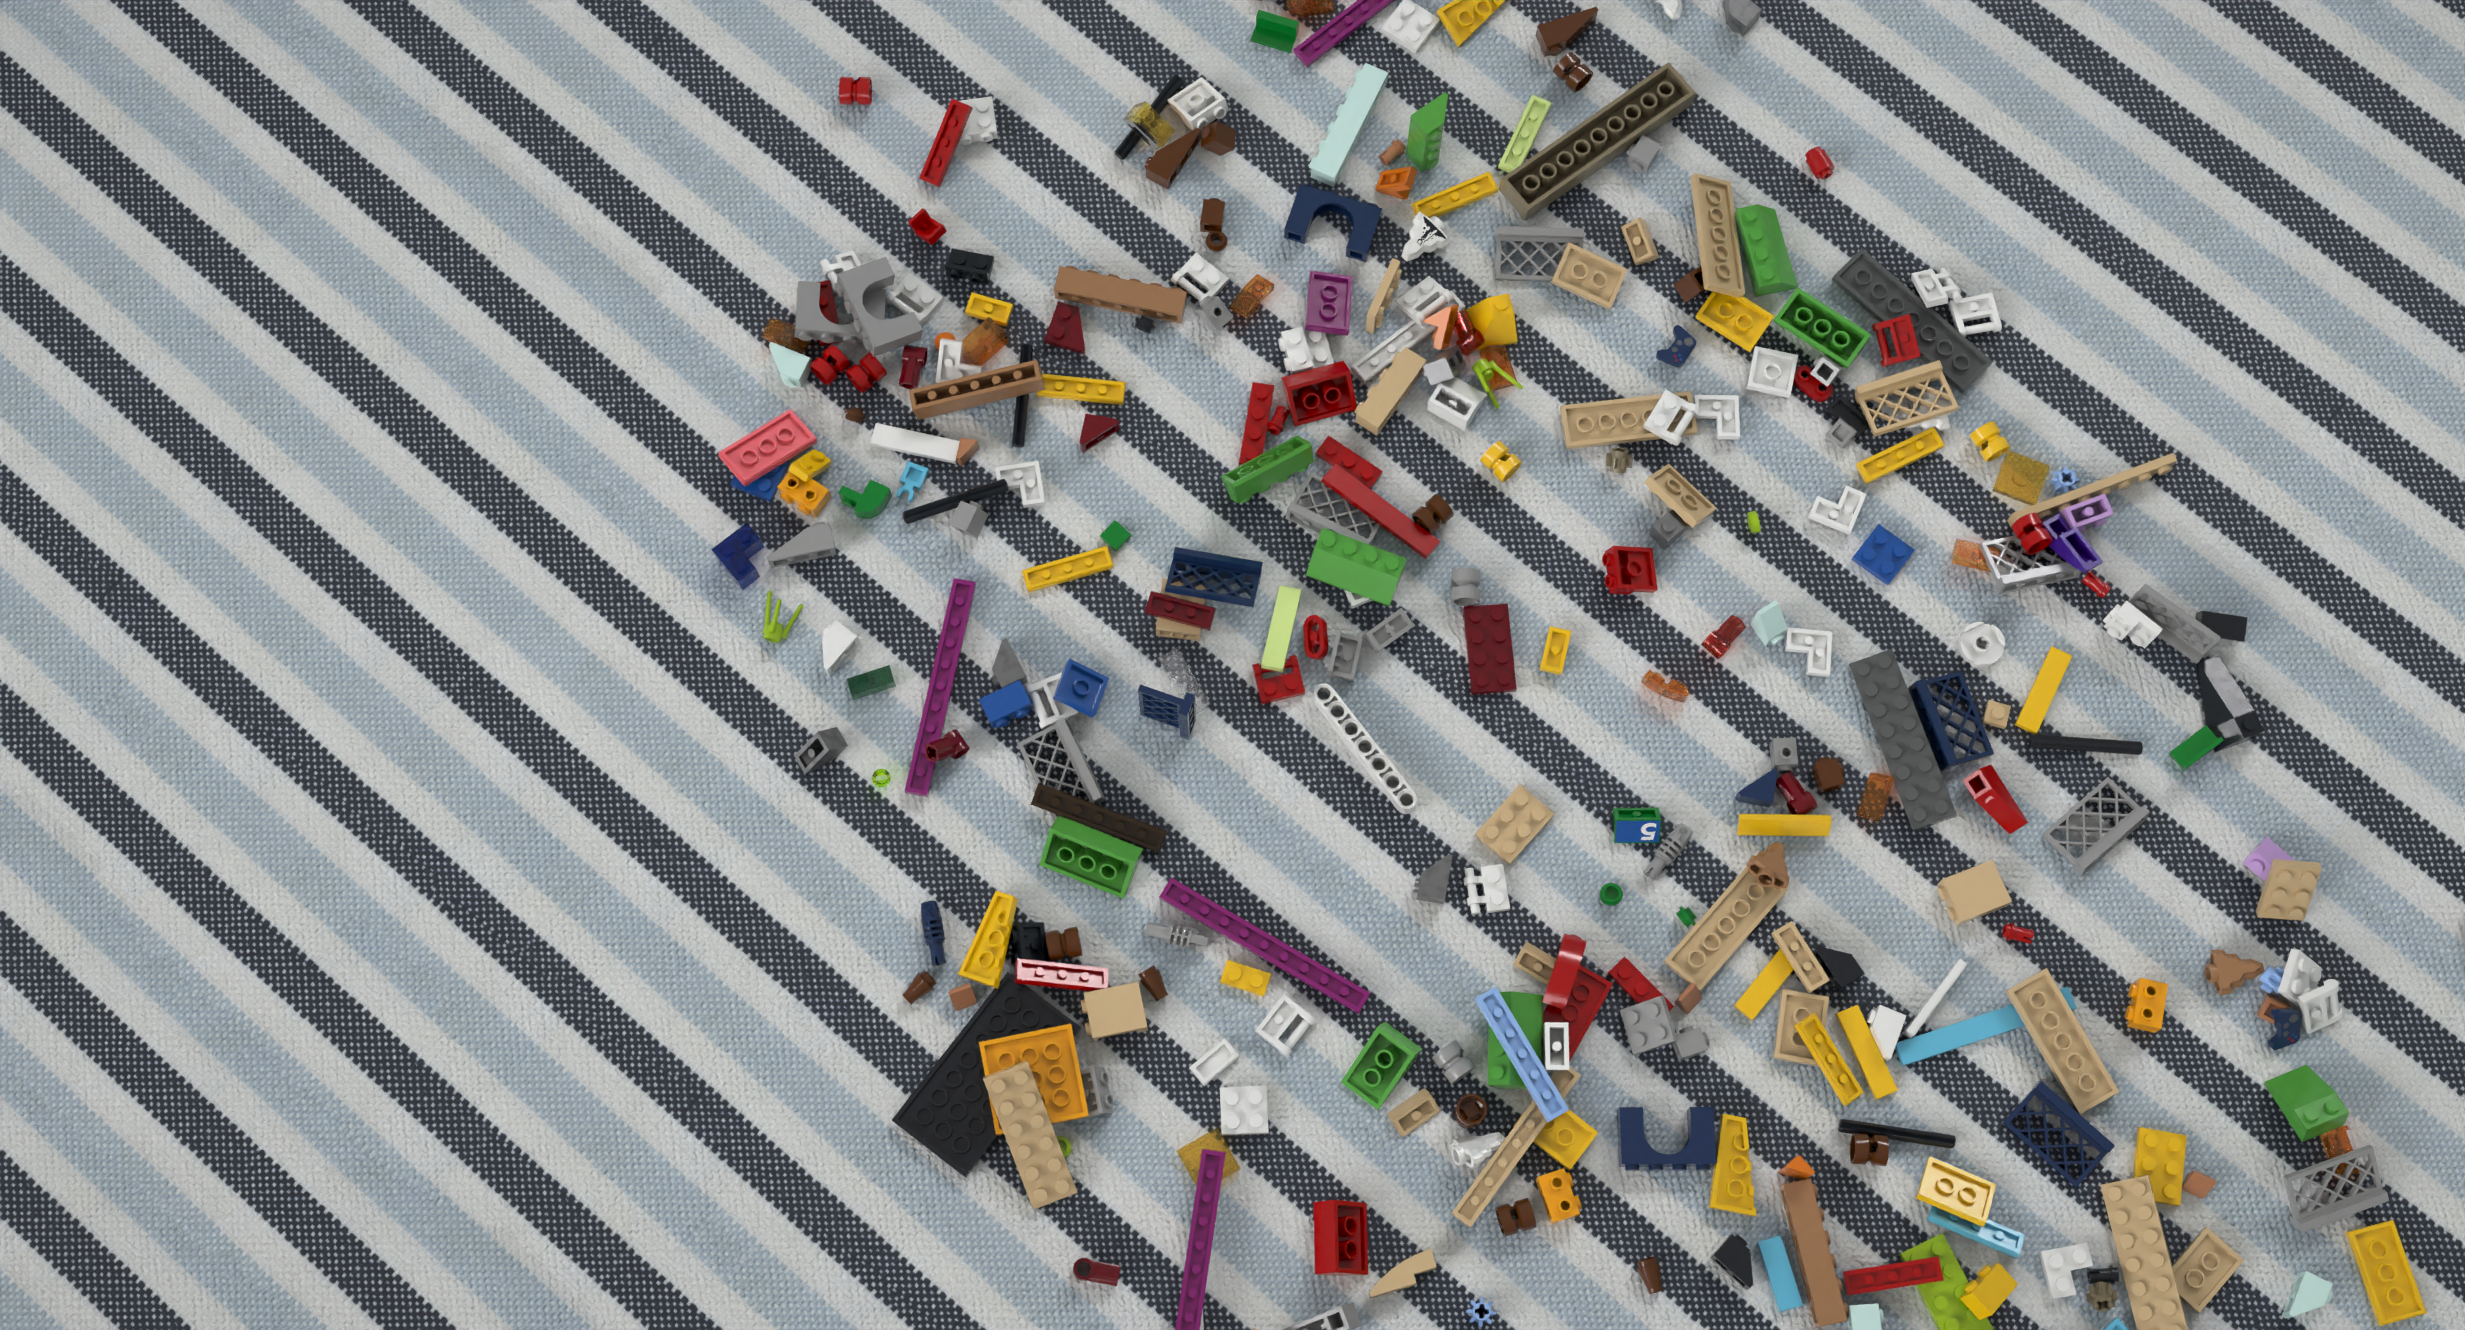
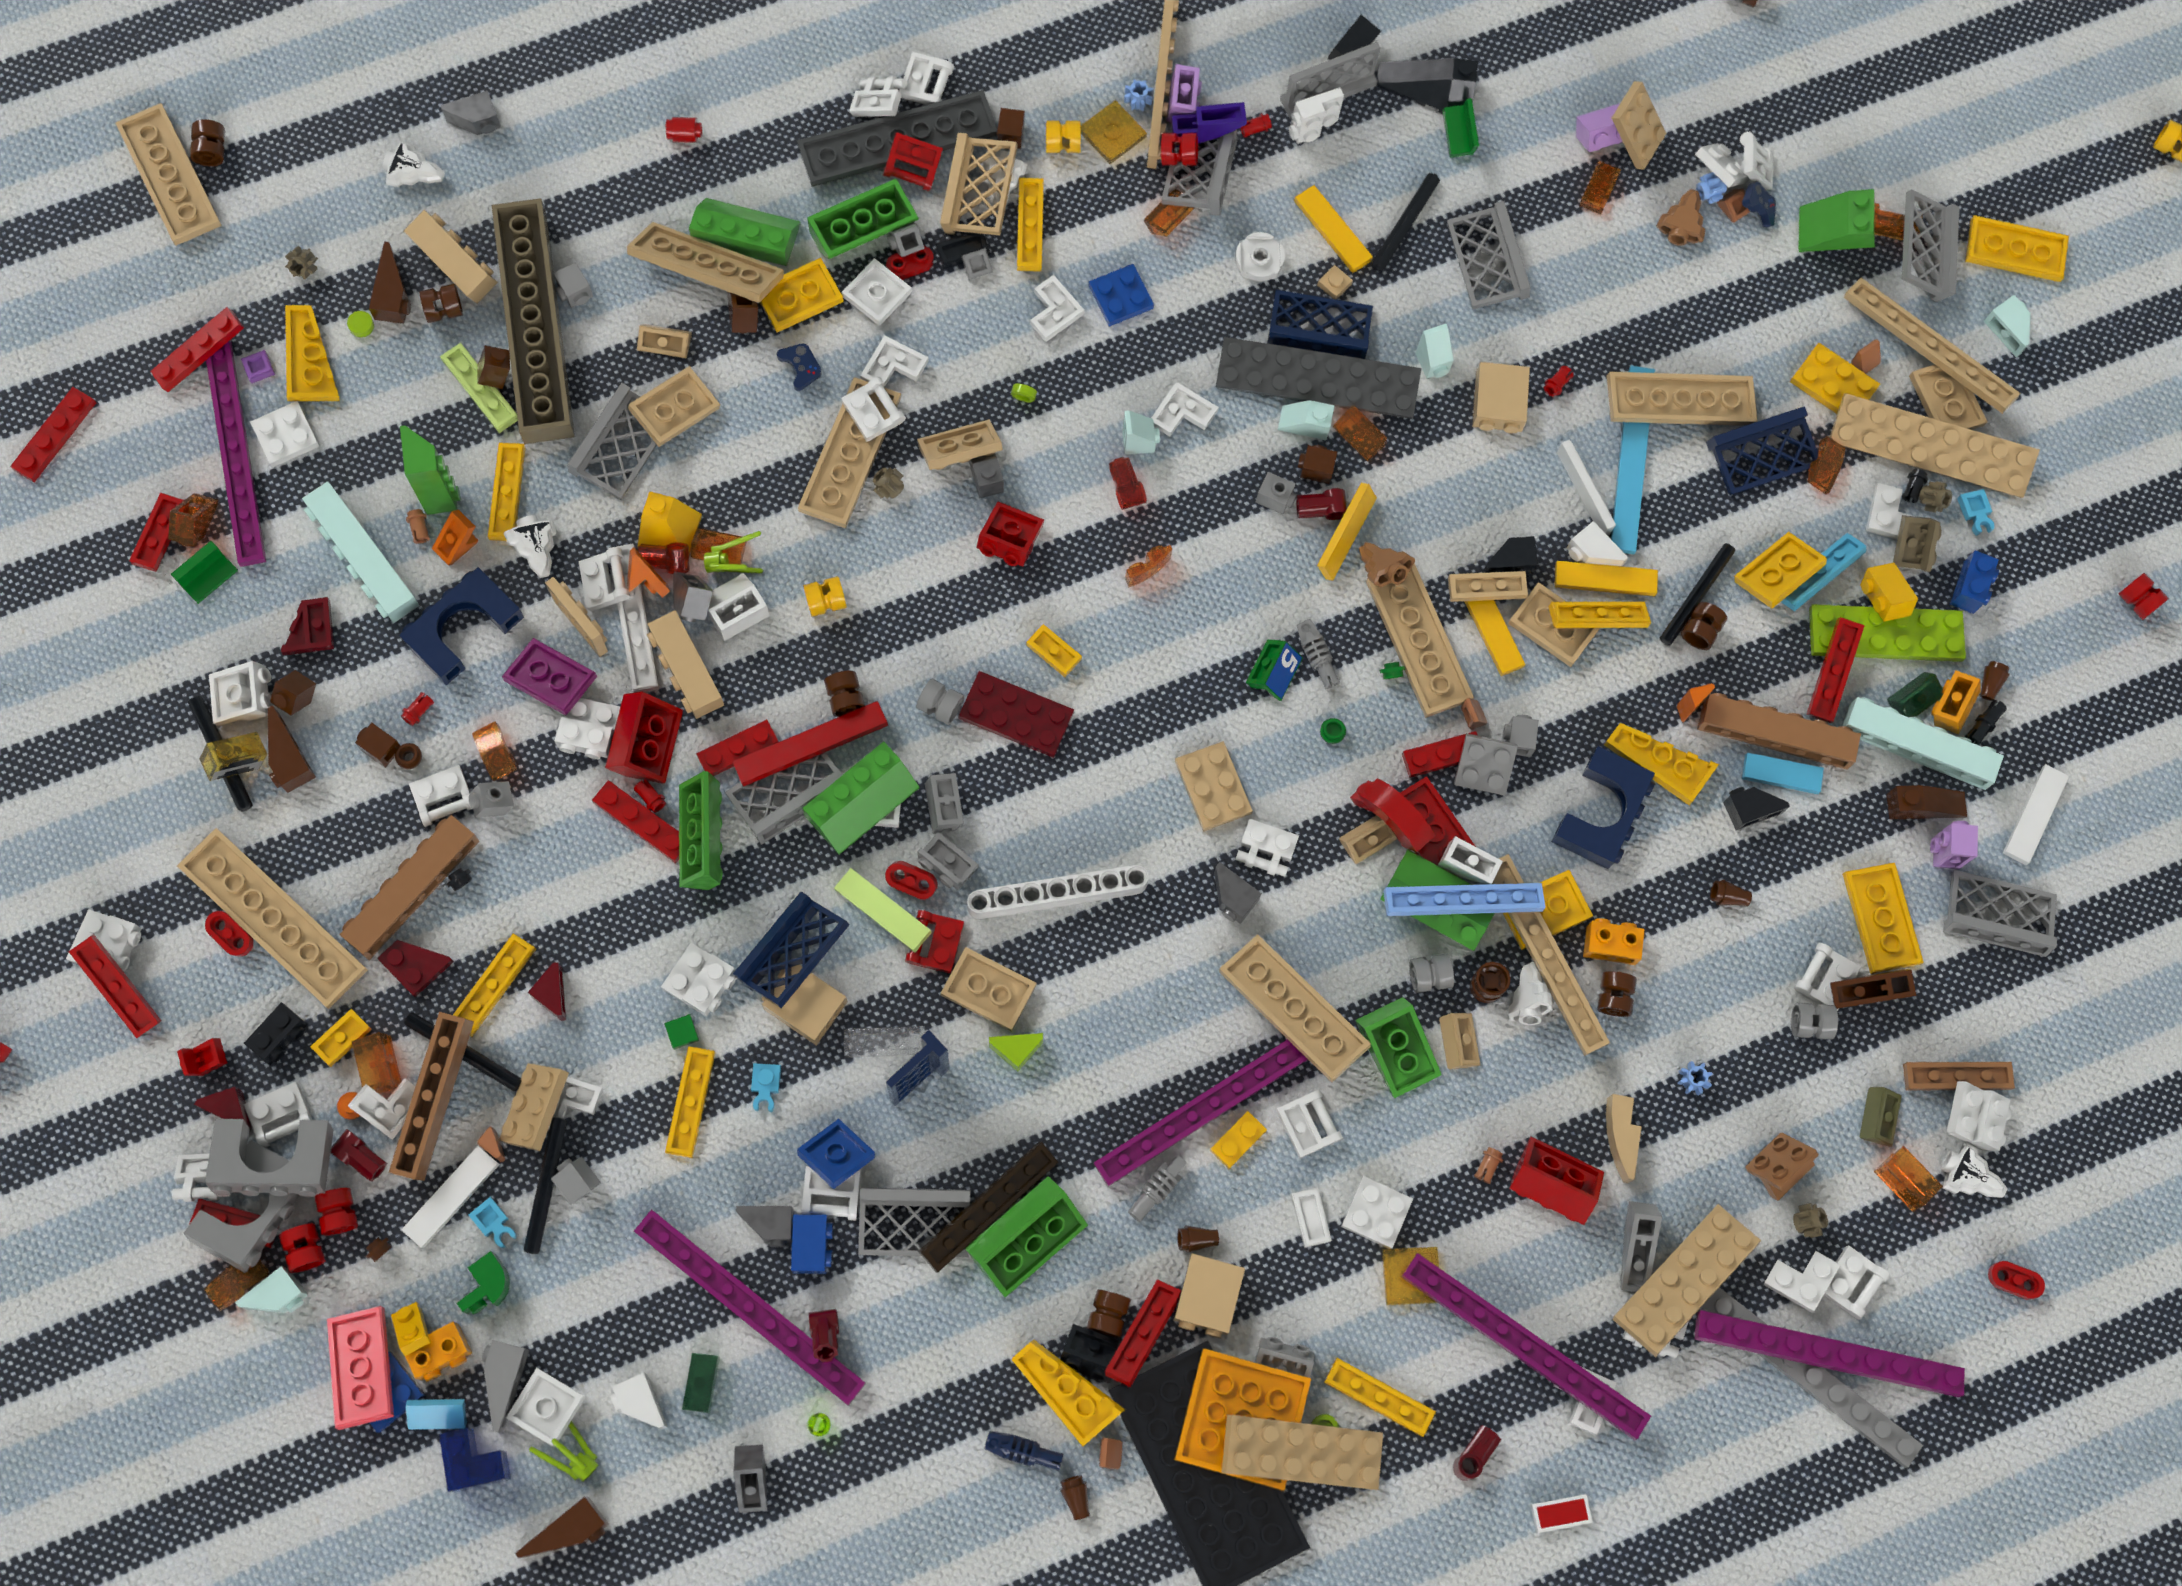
camera: 70 degrees left, 0 degrees up
(730, 648) = (572, 1528): none -> reddish brown slope
(761, 515) = (436, 1414): none -> medium azure tile
(802, 585) = (545, 1407): none -> white plate
(902, 262) = (226, 1105): none -> dark red slope
(1006, 462) = (533, 1106): none -> tan plate
(1023, 197) = (230, 935): none -> red plate
(1049, 217) = (272, 918): none -> tan plate
(1104, 1179) = (1379, 1397): none -> yellow tile
(1109, 613) = (765, 1081): none -> medium azure plate
(1159, 528) = (700, 980): none -> white plate
(1180, 610) = (809, 1003): dark red tile -> none
(1227, 779) = (1016, 1048): none -> lime slope
(1254, 227) = (416, 709): none -> red pin
(1262, 736) = (988, 989): none -> tan plate
(1274, 124) = (311, 628): none -> dark red wing
(1325, 1179) = (1489, 1163): none -> nougat pin
(1368, 969) = (1295, 1008): none -> tan plate
(1525, 28) = (360, 324): none -> lime tile
(1543, 134) = (493, 367): none -> reddish brown brick
(1614, 58) = (450, 256): none -> tan brick
(1760, 791) = (1302, 533): dark blue slope -> none
(1862, 749) = (1307, 419): none -> light aqua slope
(1973, 399) = (1011, 126): none -> reddish brown brick
(1979, 820) = (1435, 351): none -> light aqua slope
(1995, 798) = (1407, 327): red slope -> none
(2048, 1296) = (1917, 543): none -> dark tan bracket
(2075, 1191) = (1826, 468): none -> clear orange slope
(2146, 1005) = (1682, 307): light orange brick -> none
(2217, 888) = (1599, 187): none -> clear orange slope
(2240, 1232) = (1932, 345): none -> tan plate

